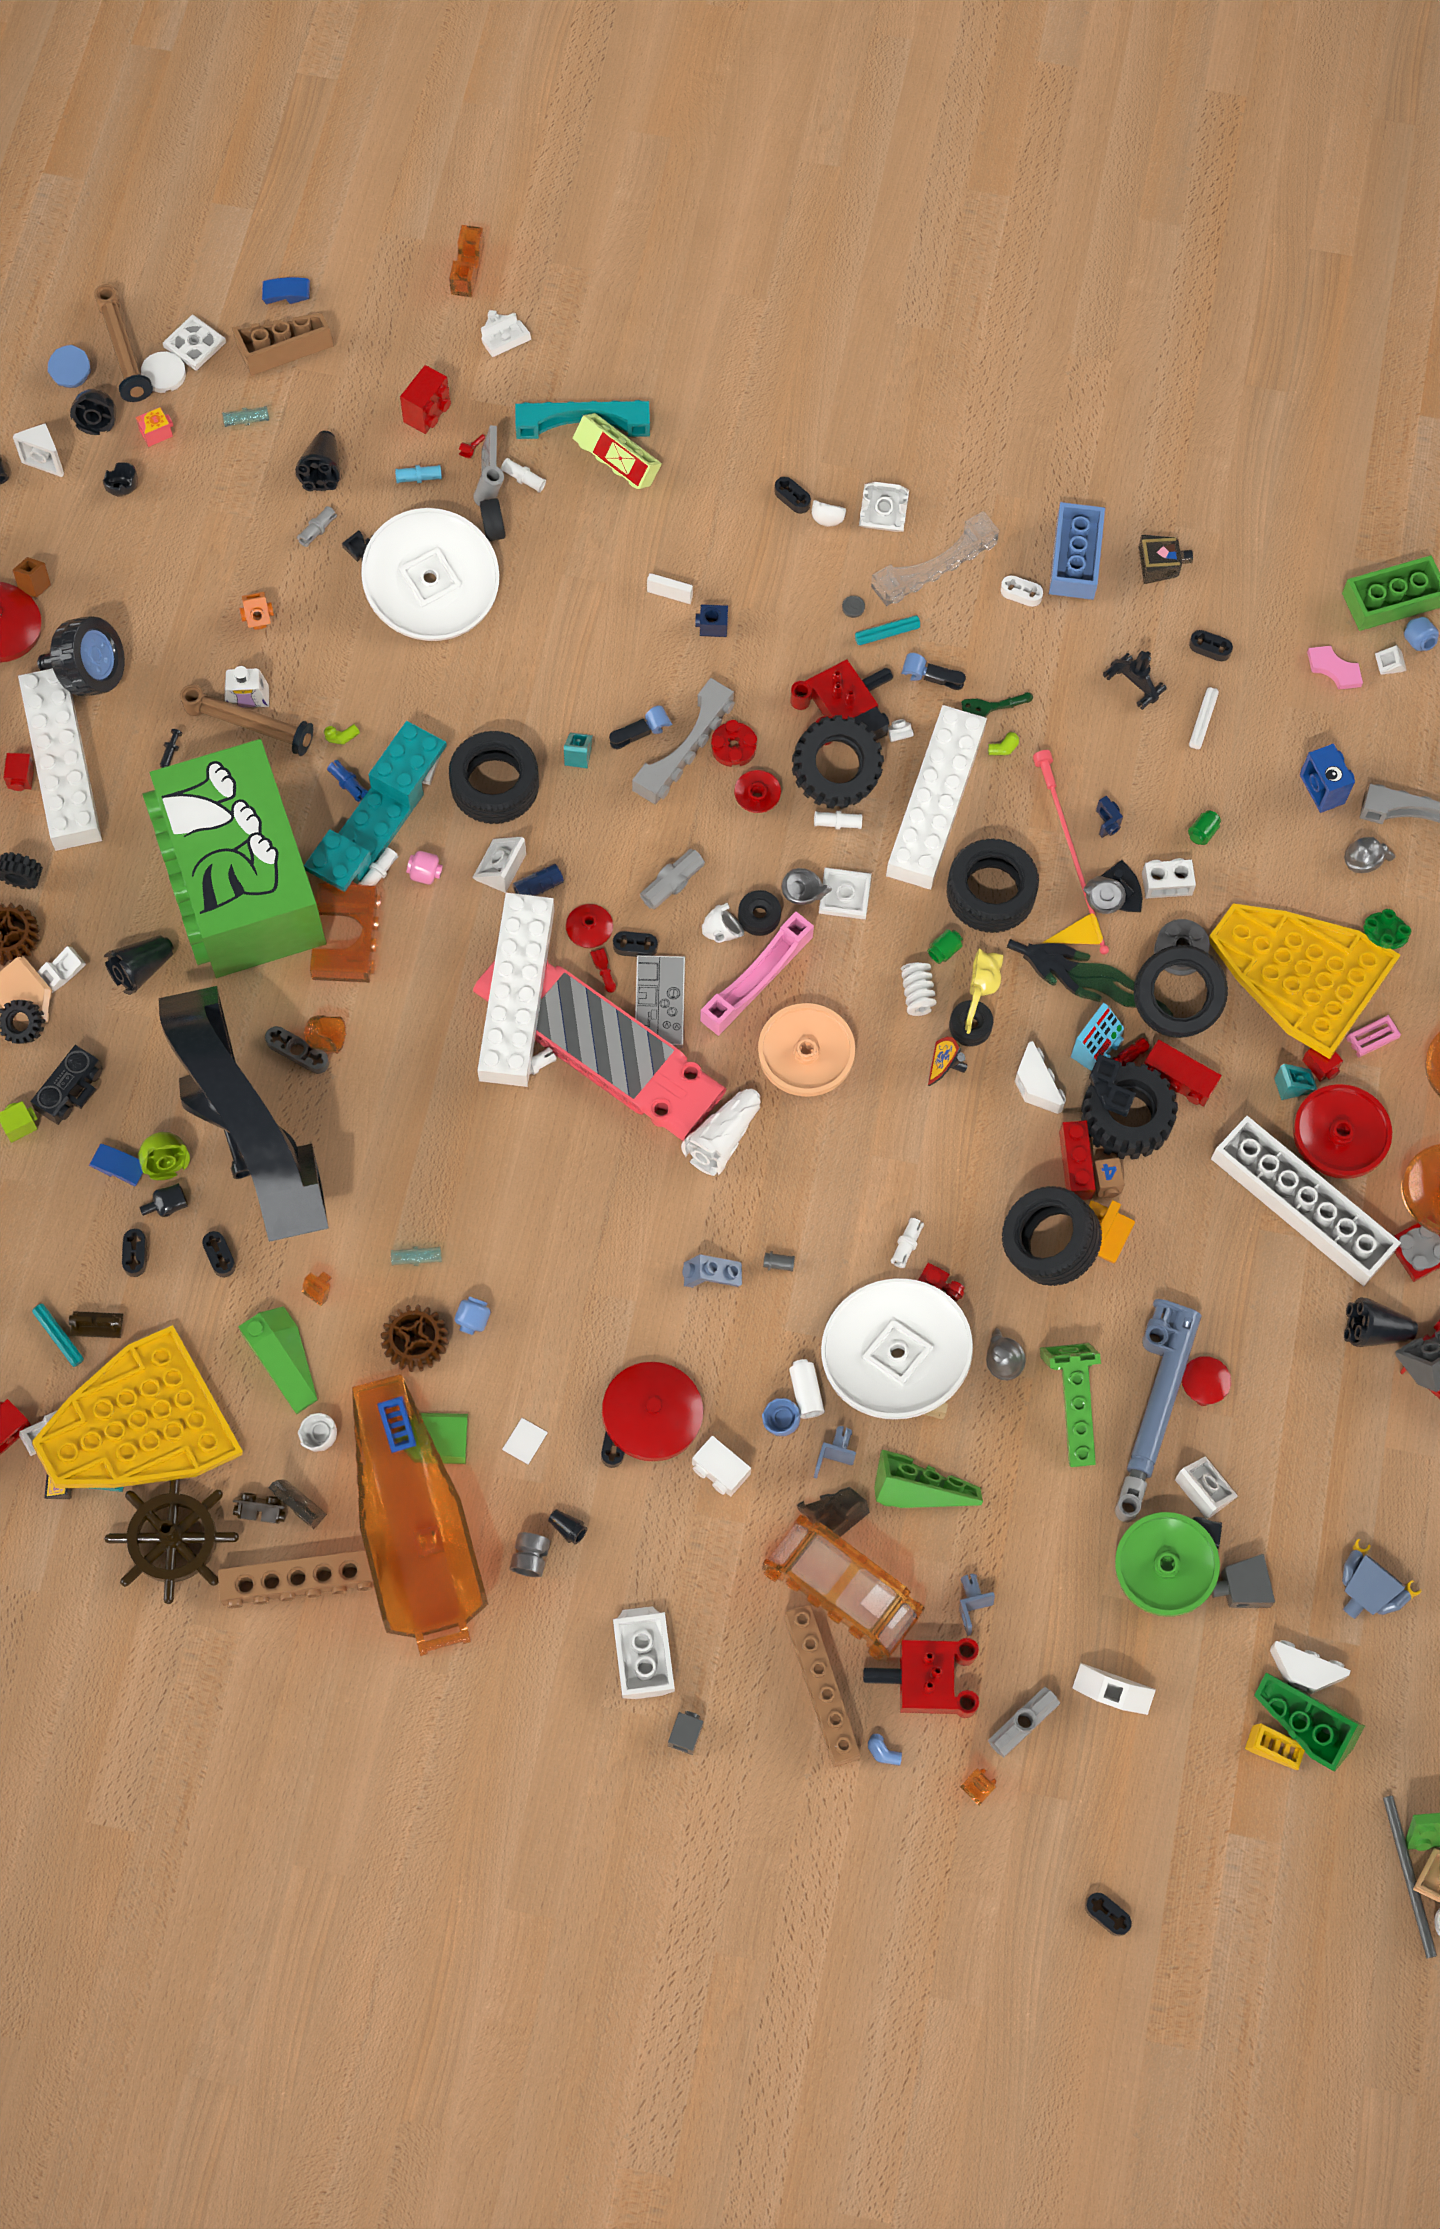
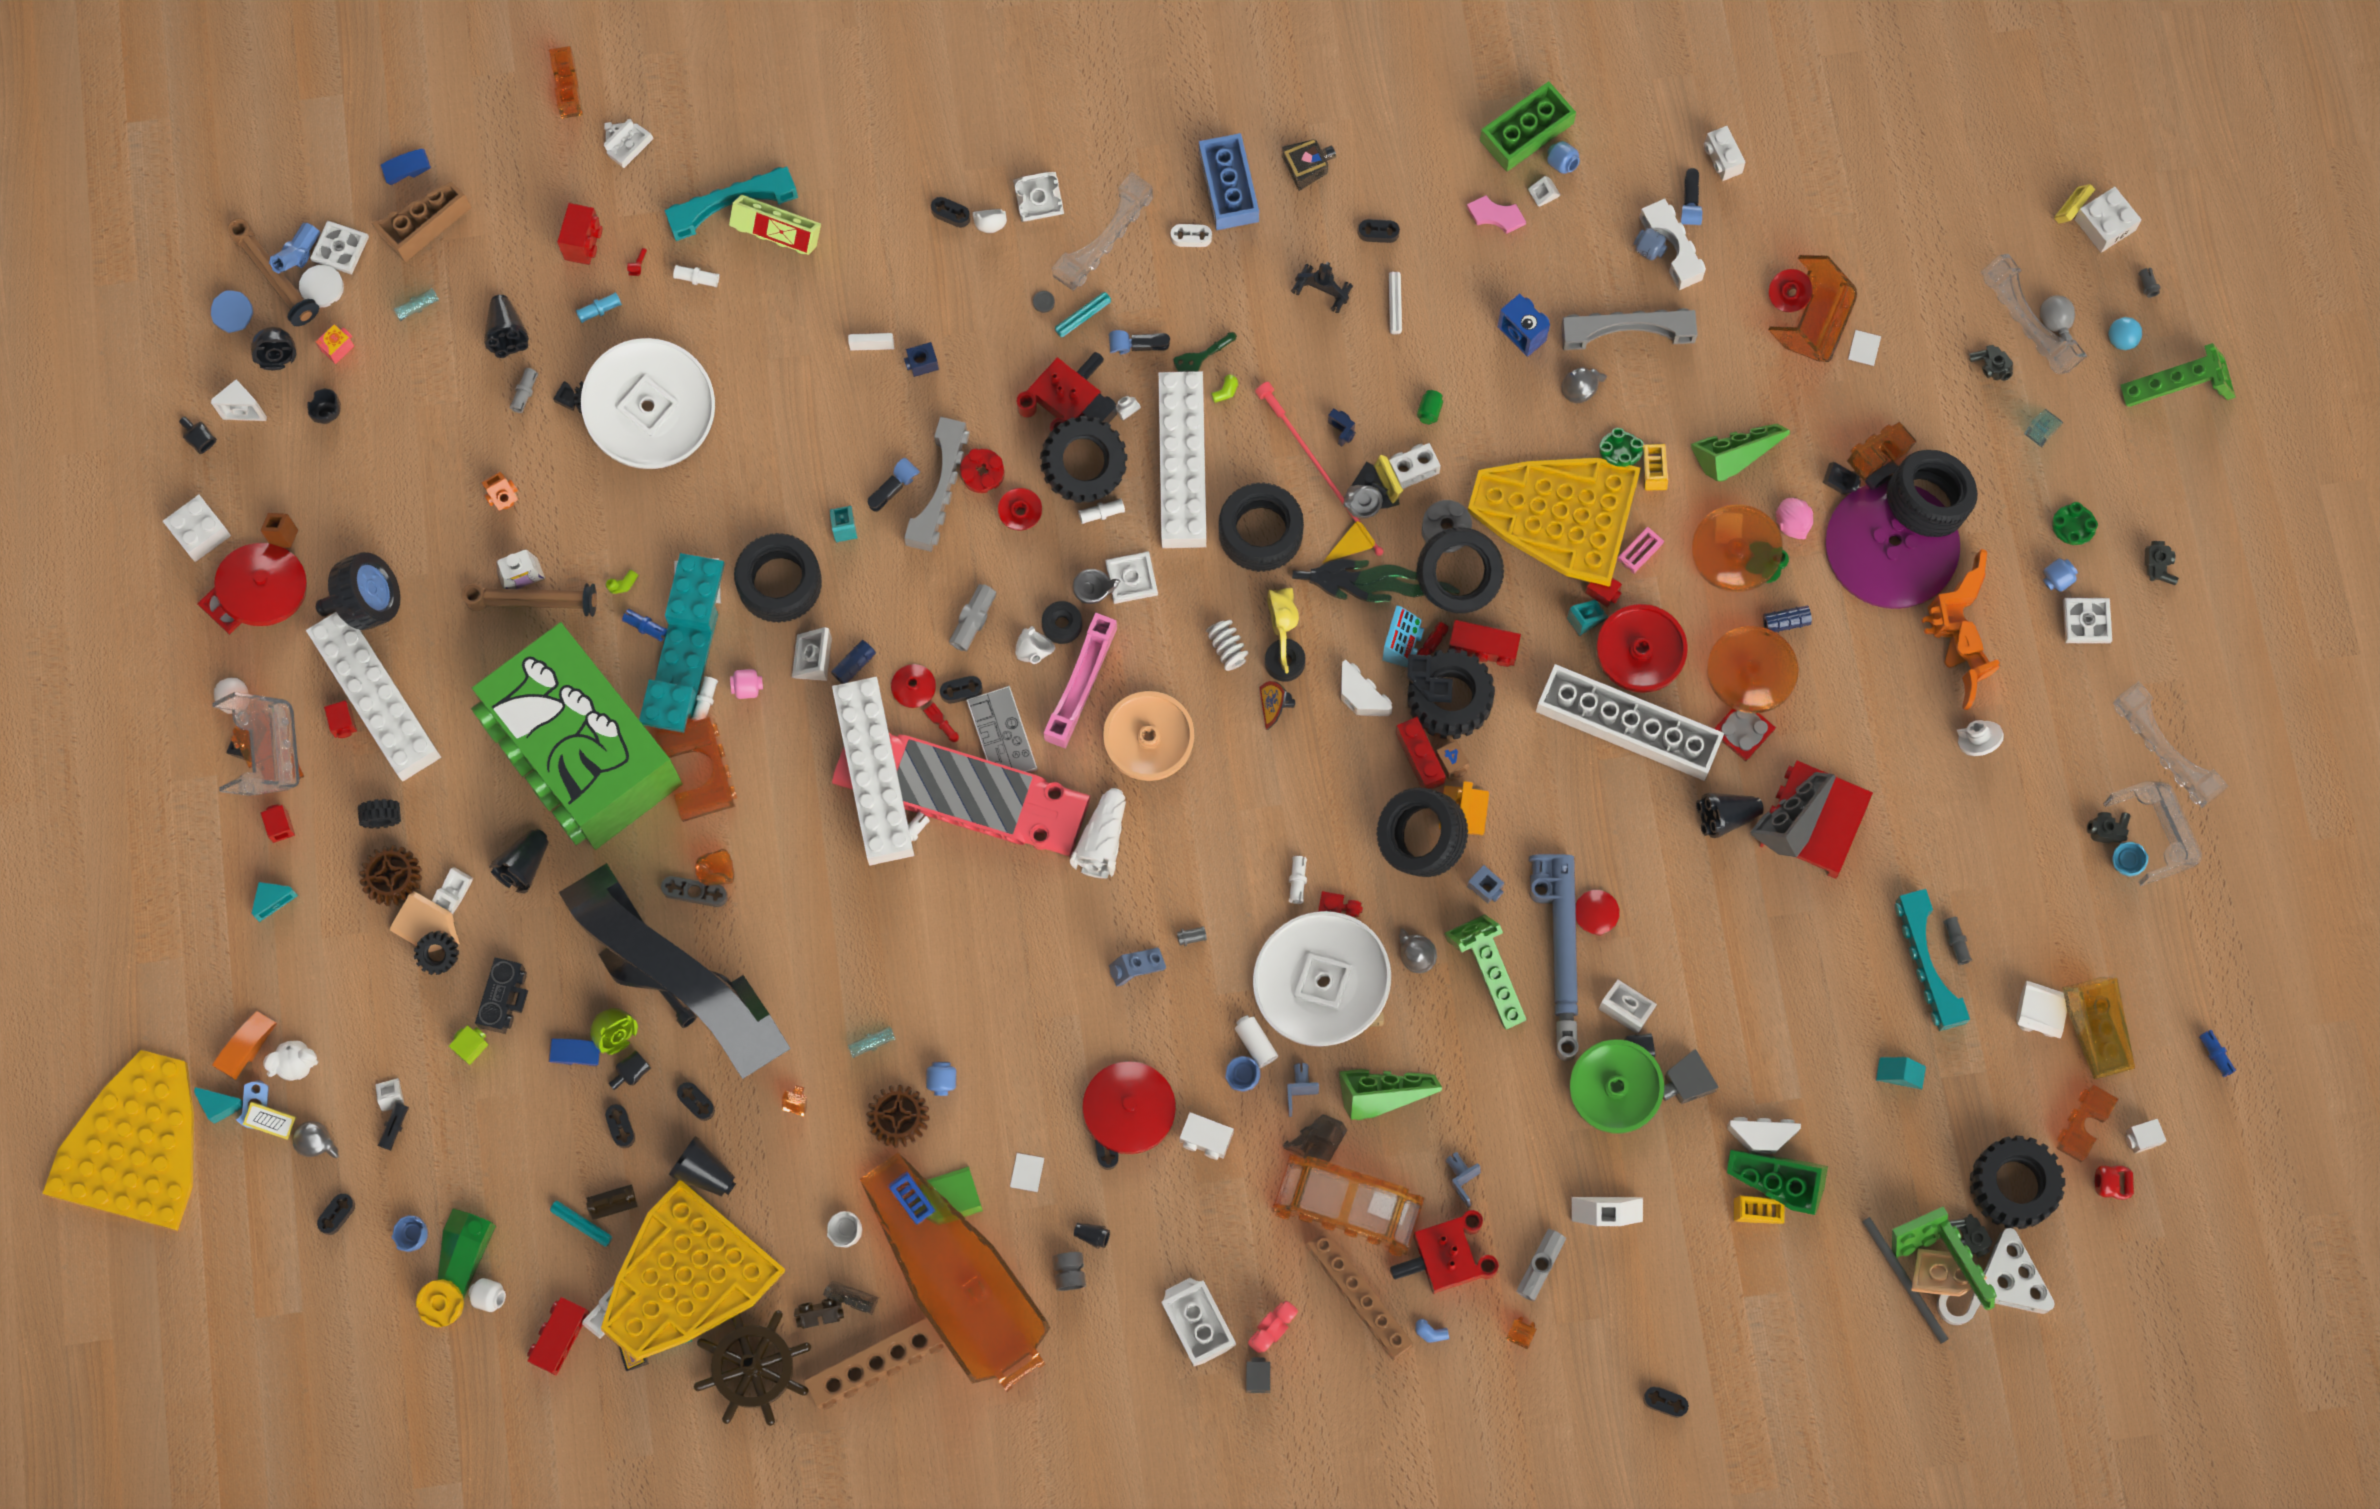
camera: 15 degrees left, 5 degrees up
(151, 333) = (297, 251): none -> medium blue piece
(170, 748) = (471, 652): black piece -> none
(198, 1322) = (703, 1169): none -> black cone
(279, 1349) = (783, 1168): bright green wedge -> none
(491, 475) = (669, 291): light grey piece -> none
(492, 519) = (685, 330): black tyre -> none
(718, 1685) = (1272, 1327): none -> coral gear
(945, 946) = (1238, 597): green brick -> none
(1100, 1305) = (1486, 877): none -> sand blue brick
(1138, 881) = (1388, 478): none -> light yellow tile
(1372, 1585) = (1796, 1043): sand blue torso -> none
(1411, 973) = (1655, 480): none -> yellow slope

